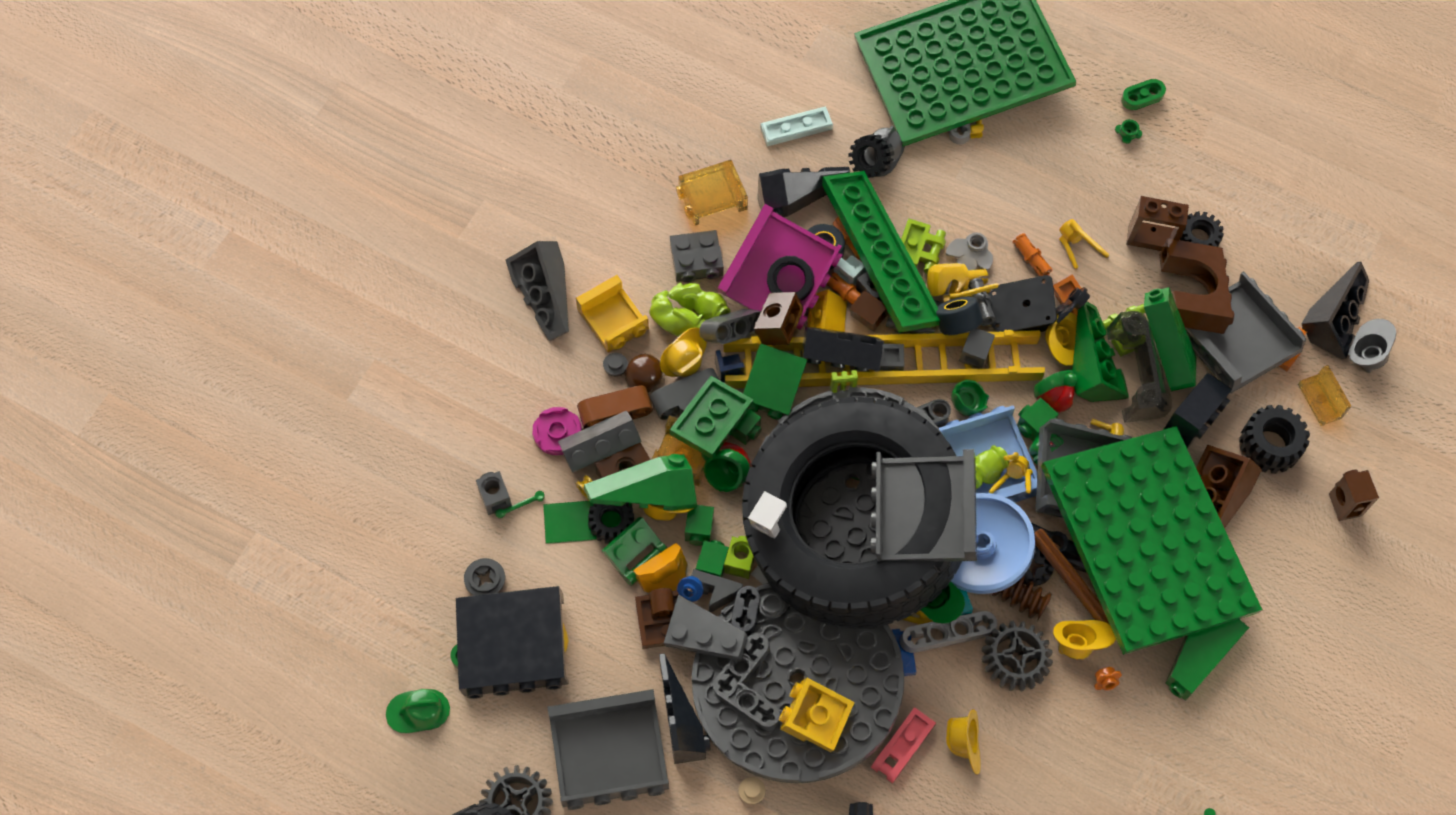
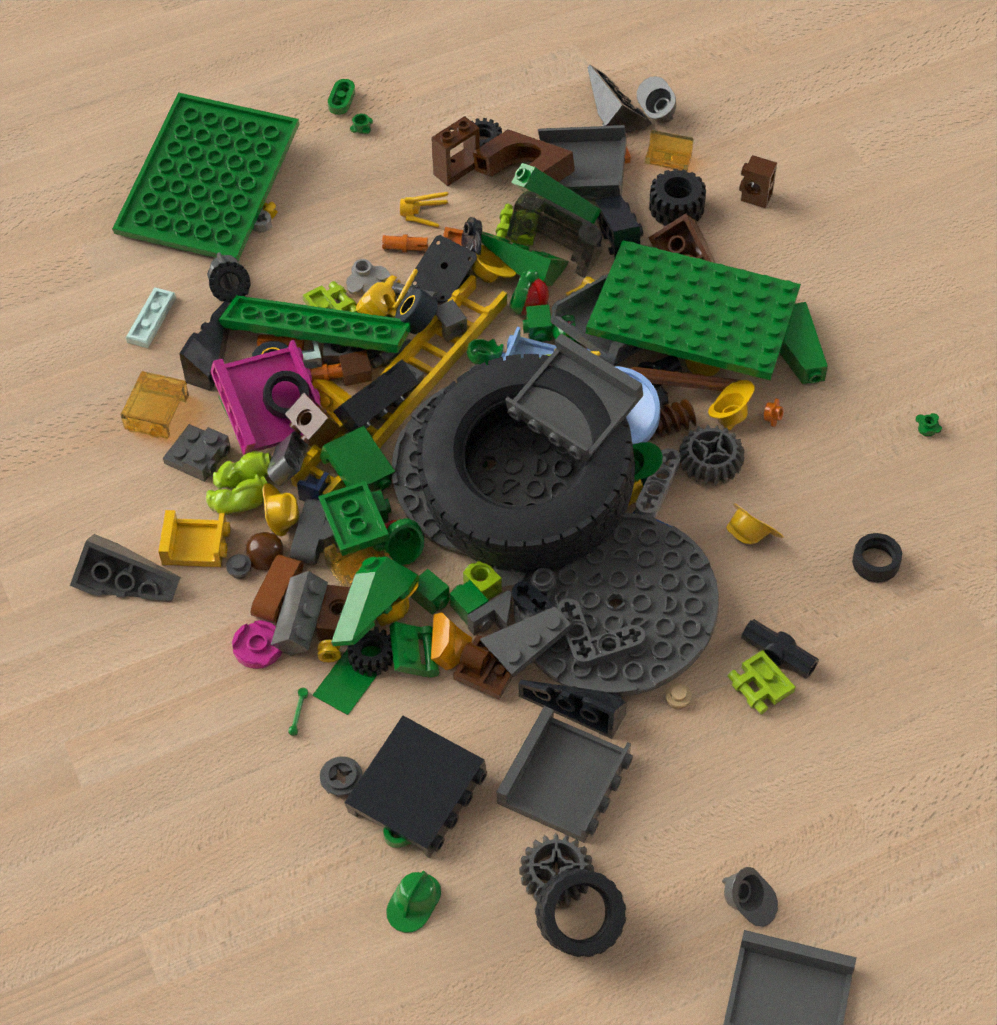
camera: 50 degrees left, 10 degrees down
(493, 501) = (276, 730): dark grey brick -> none
(692, 583) = (478, 622): blue plate -> none
(767, 514) = (488, 507): white panel -> none
(816, 714) = (660, 600): yellow plate -> none
(843, 379) = (403, 414): lime tile -> none
(904, 744) = (724, 571): coral plate -> none

